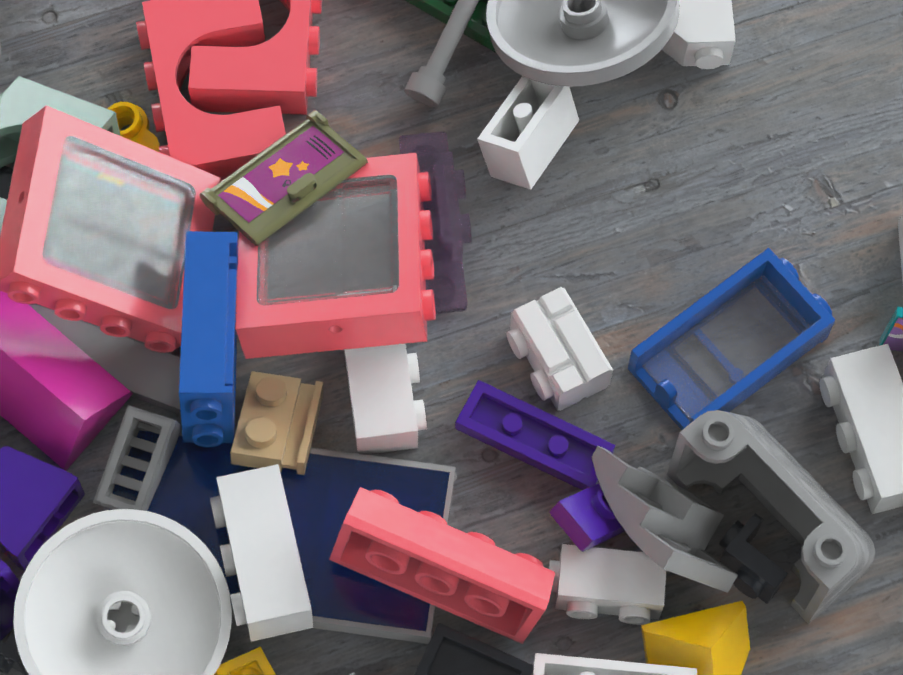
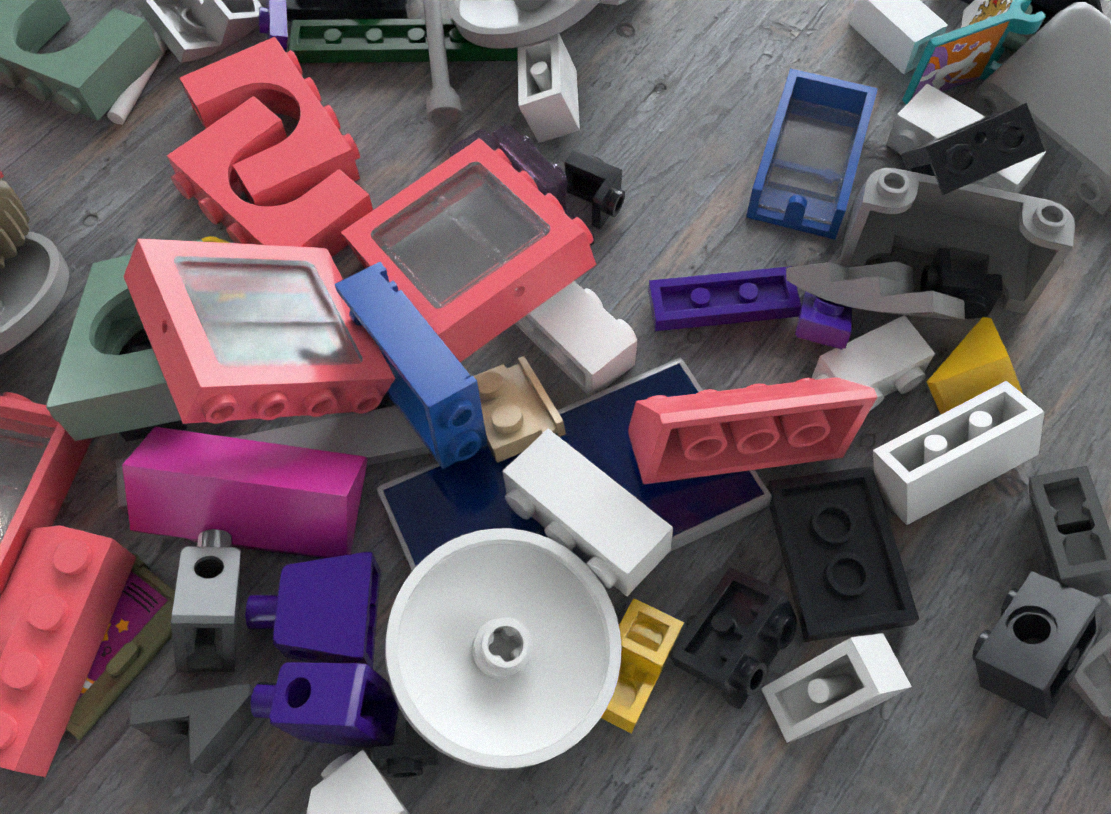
camera: 30 degrees left, 5 degrees down
(126, 439) = (402, 469): light grey slope -> none
(262, 190) = (377, 217): door -> none
(507, 250) = (596, 183): none -> black bracket
(559, 349) = (691, 225): white brick -> none
(809, 444) = (977, 149): none -> black window

